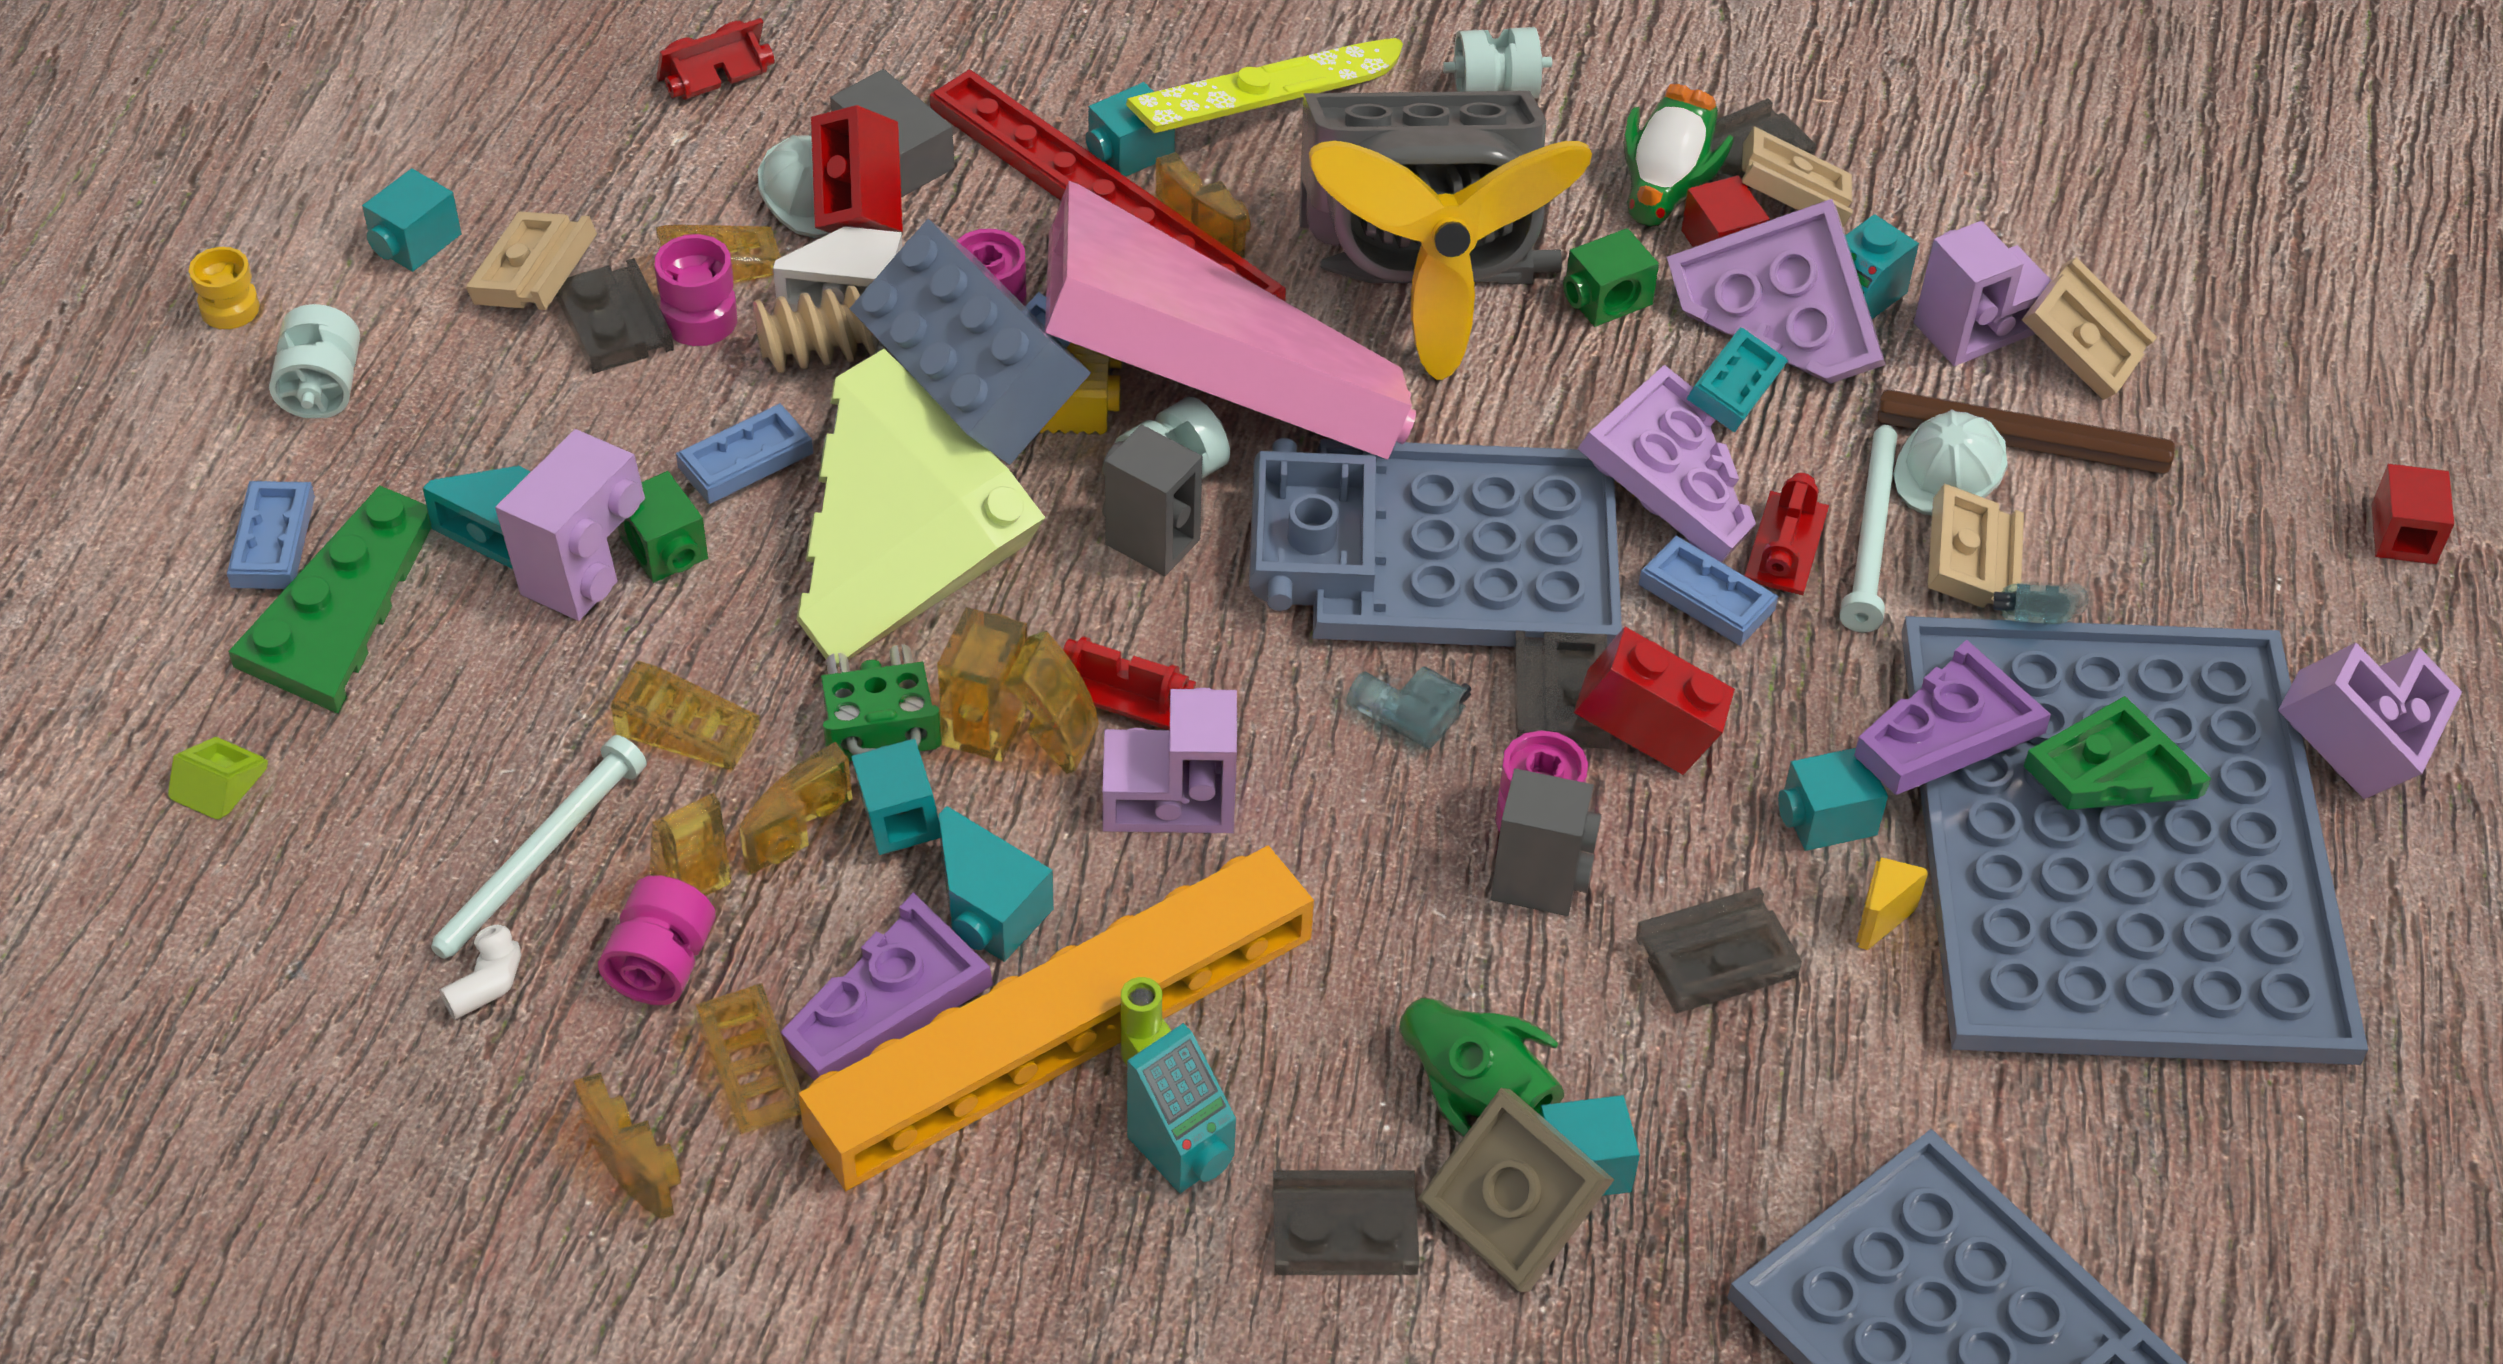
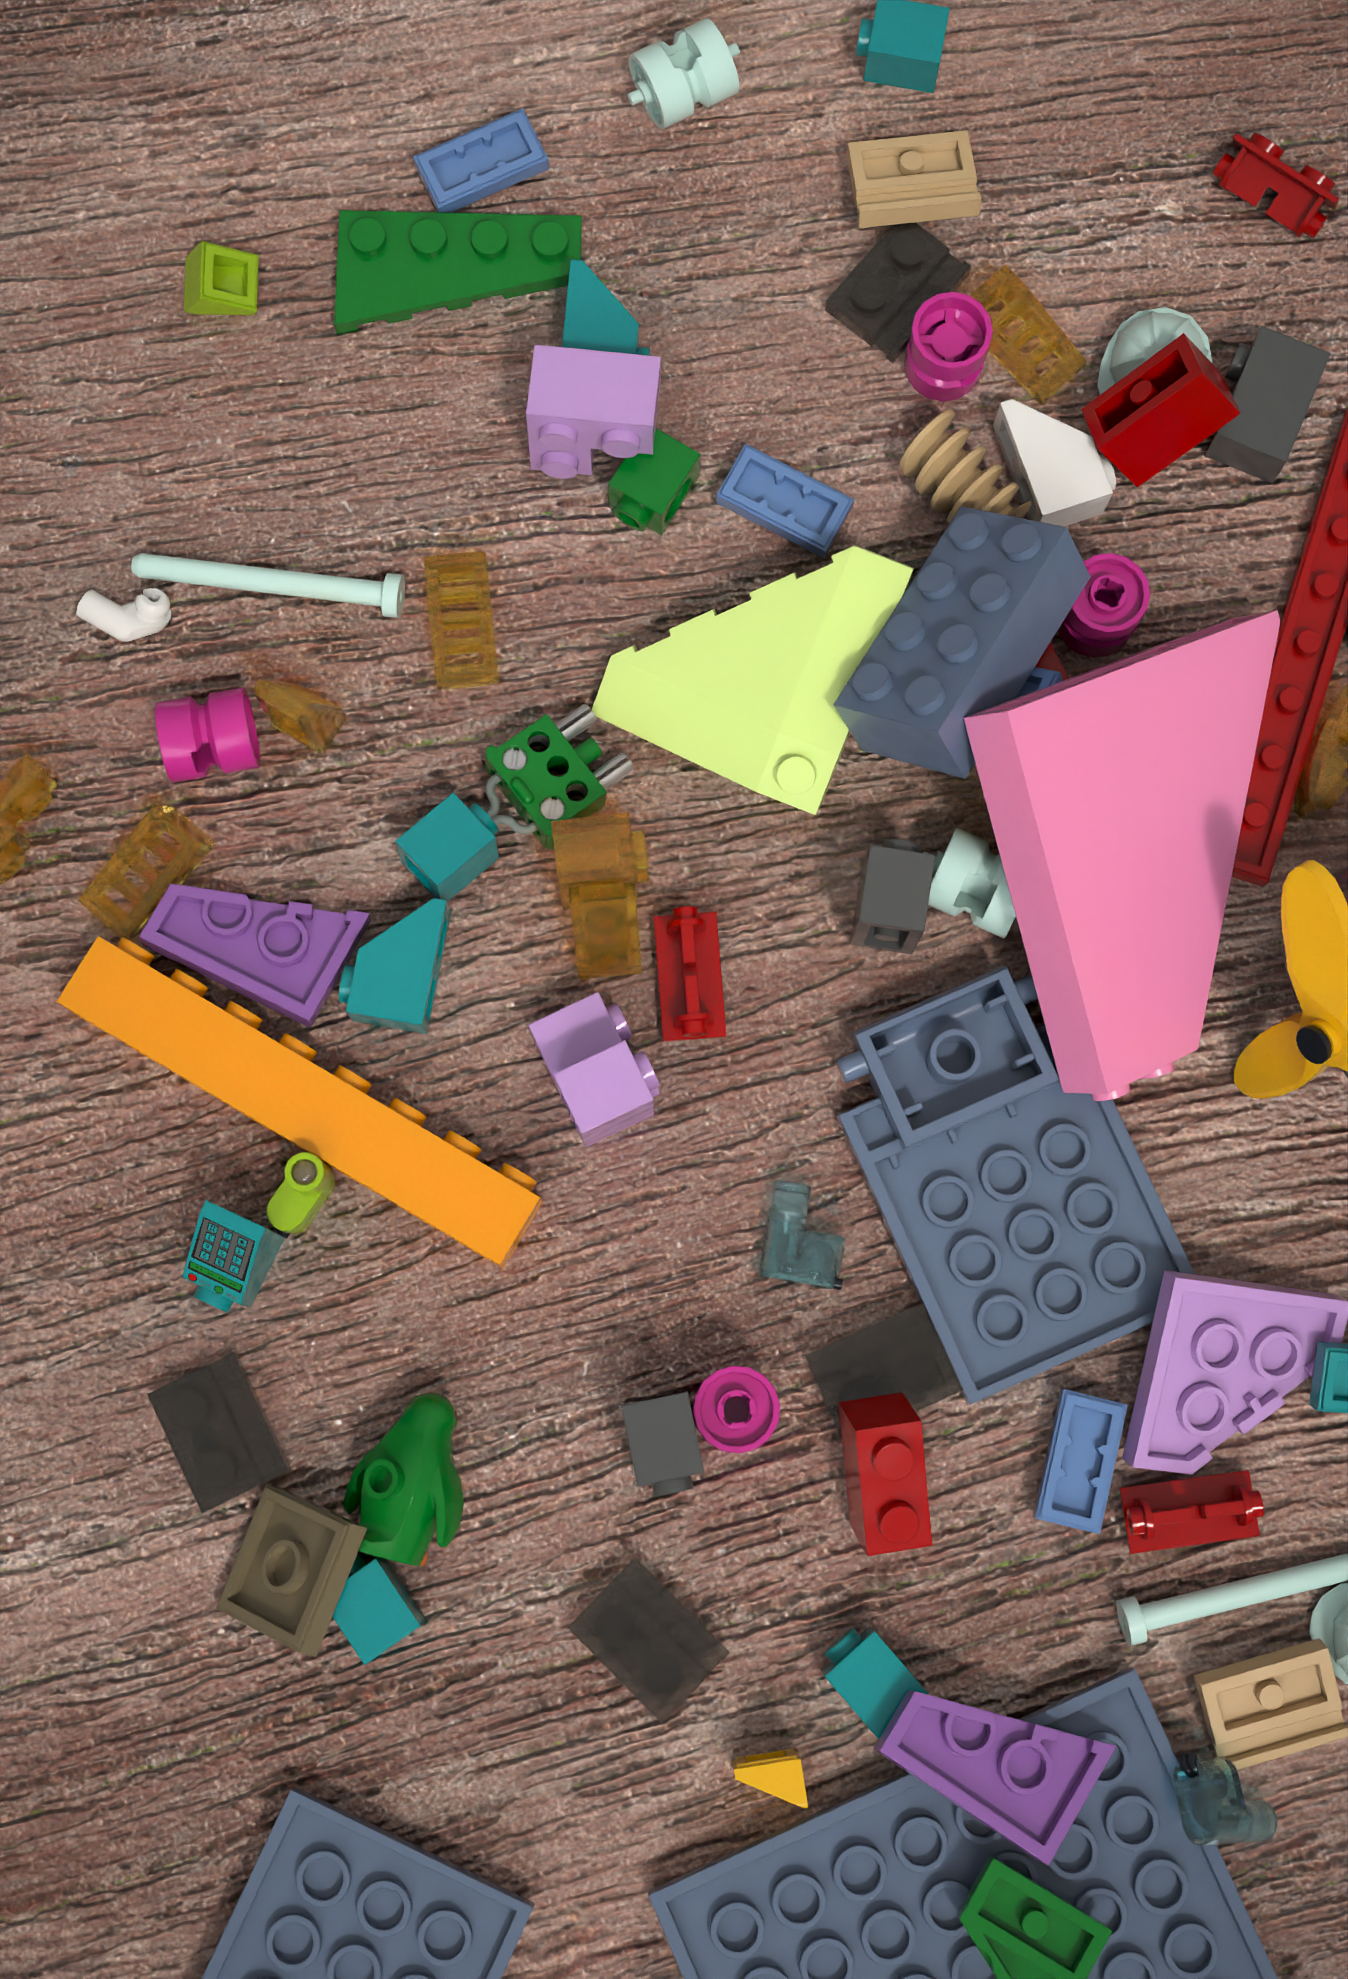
camera: 65 degrees right, 30 degrees up
(777, 821) = (386, 764): clear yellow slope -> none

